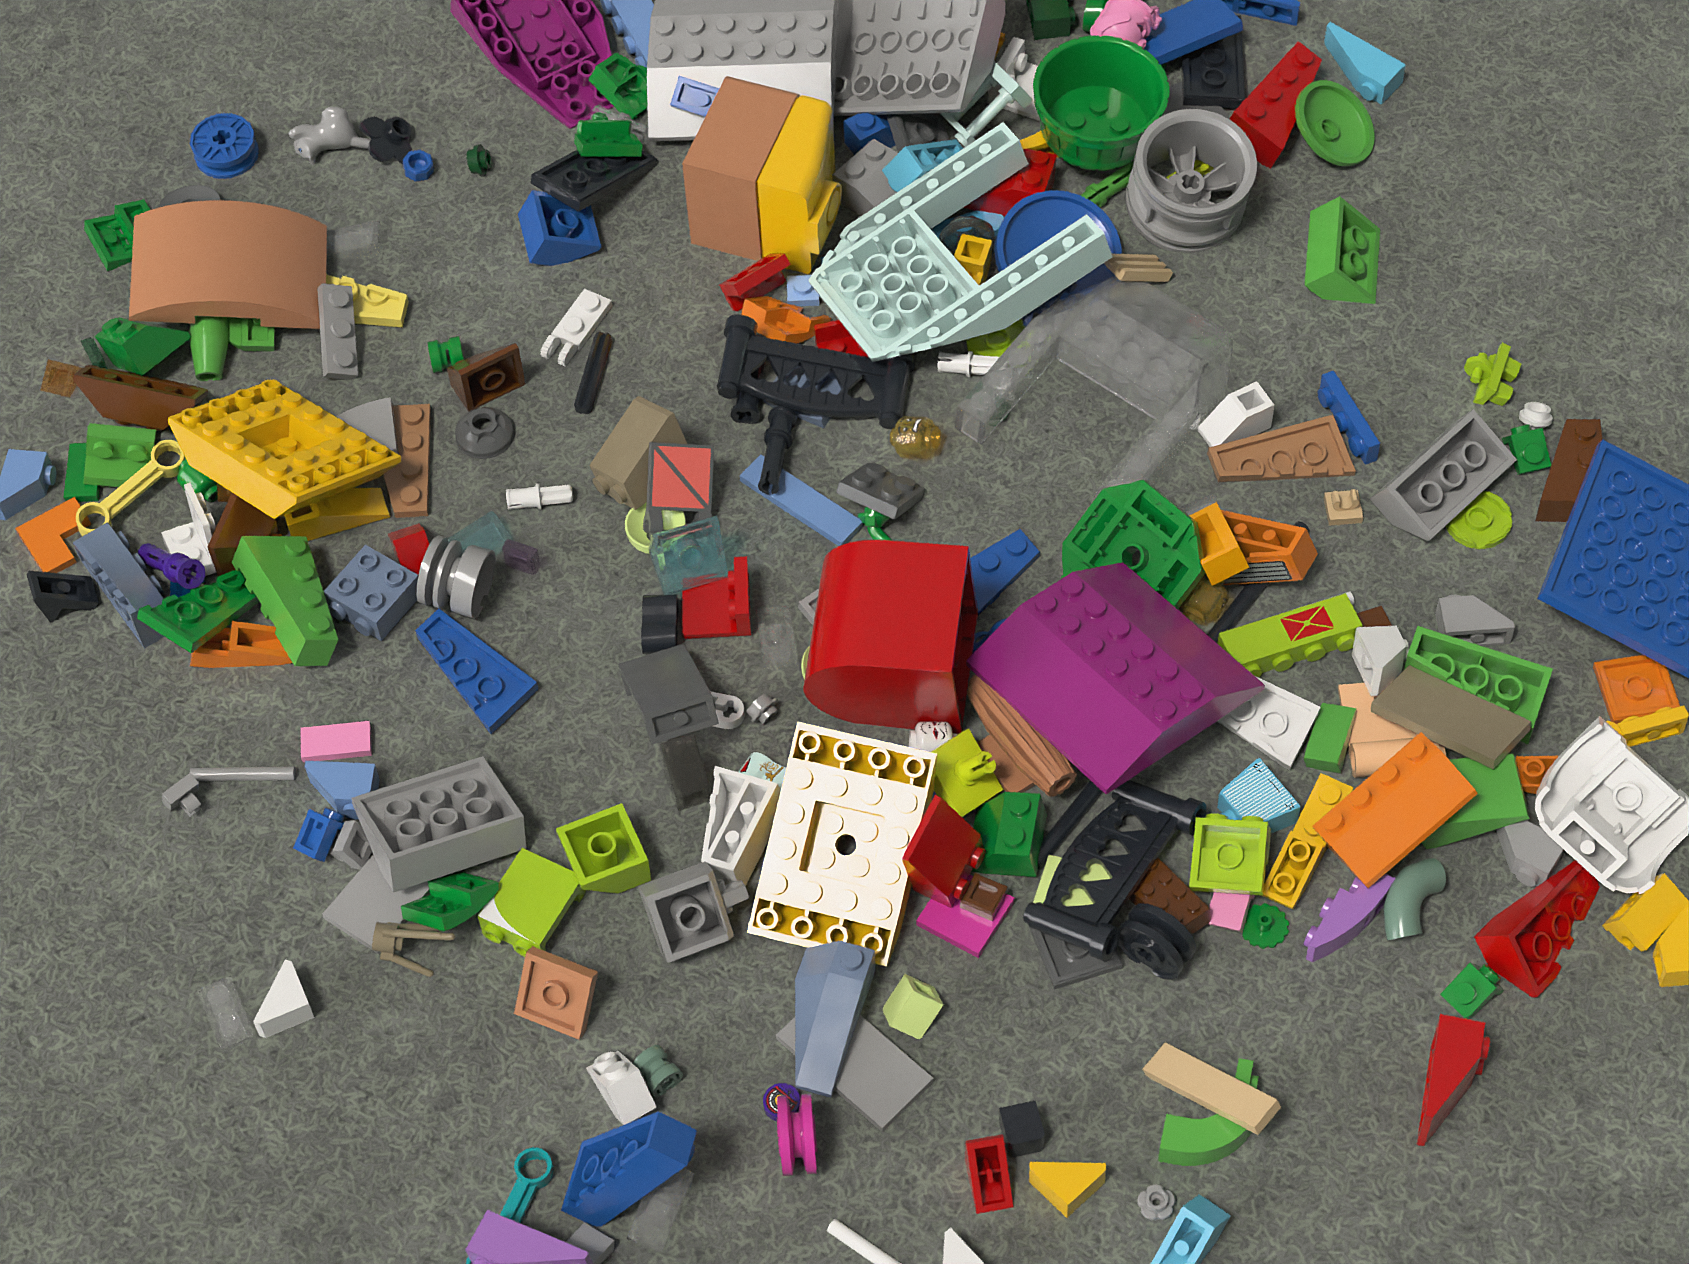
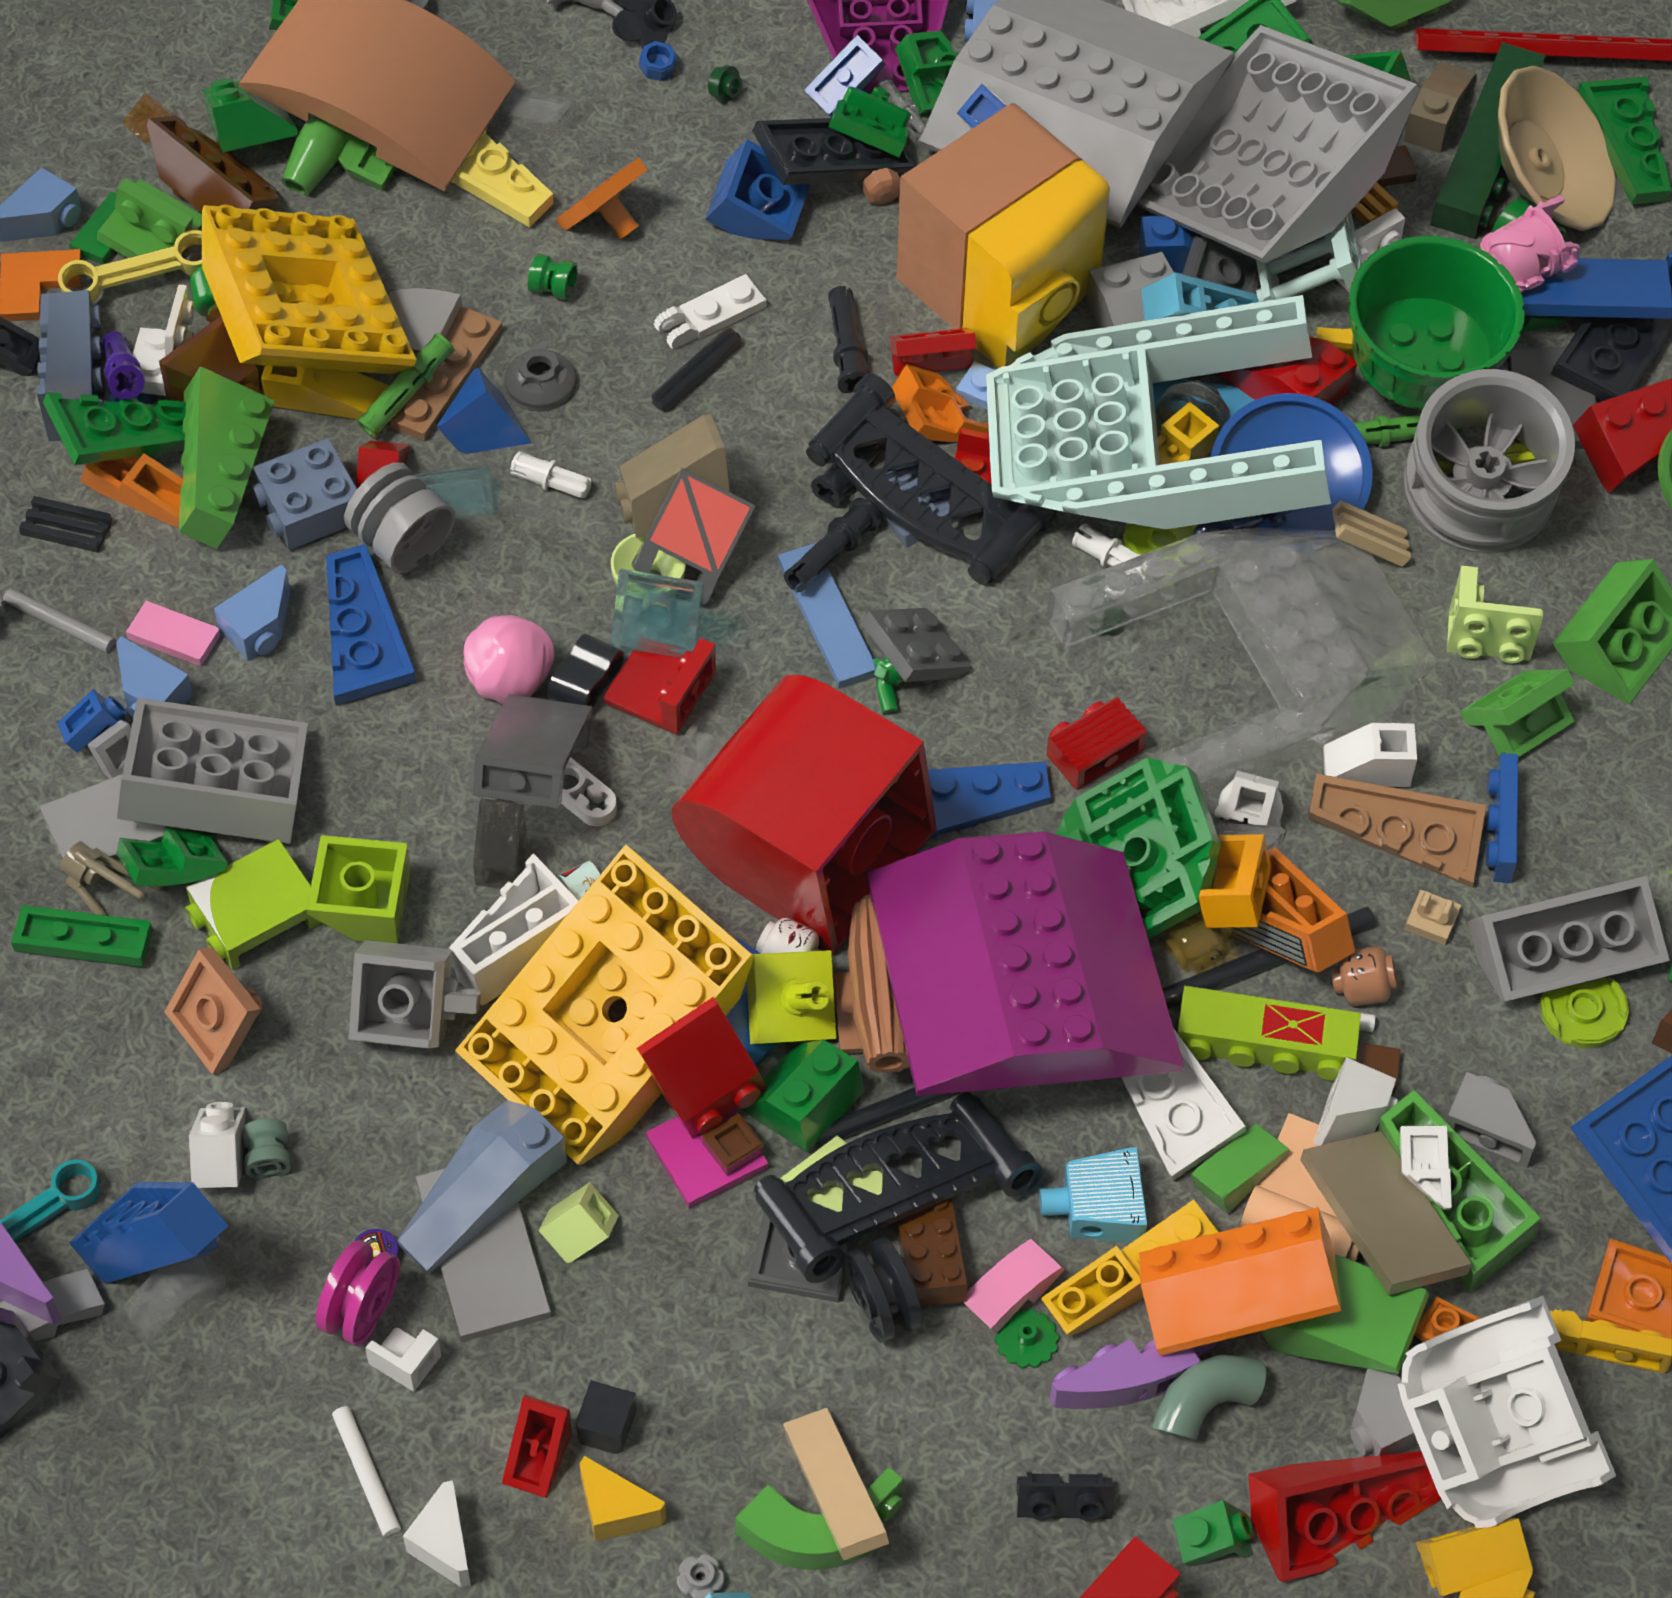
camera: 25 degrees right, 0 degrees up
(93, 353) = (193, 109): clear green tile -> none
(195, 691) = (70, 511): none -> black tile
(337, 331) = (452, 199): light grey plate -> none
(391, 699) = (256, 615): none -> medium blue slope
(393, 482) = (405, 385): none -> bright green pin
(417, 990) = (82, 936): none -> green plate
(449, 281) = (606, 201): none -> orange tile
(461, 480) = (481, 418): none -> blue slope
(487, 376) = (576, 320): reddish brown slope -> none
(521, 557) = (487, 530): clear purple tile -> none
(564, 116) = (851, 67): none -> plate
(599, 639) = (508, 657): none -> bright pink piece
(641, 182) = (882, 186): none -> nougat tile
(696, 310) = (850, 353): none -> black pin
(762, 709) = (634, 819): light grey plate -> none
(852, 1163) = (405, 1357): none -> white panel
(915, 437) = (995, 604): clear yellow head -> none
(1046, 498) = (1095, 742): none -> red brick
(1180, 484) = (1251, 798): none -> white piece
(1230, 855) = (1028, 1237): lime plate -> none
(1253, 297) = (1489, 628): none -> yellowish green bracket
(1313, 339) = (1523, 710): none -> bright green bracket
(1330, 568) = (1365, 977): none -> nougat head
(1371, 1011) = (1083, 1496): none -> black hinge
(1458, 670) = (1426, 1161): none -> white slope

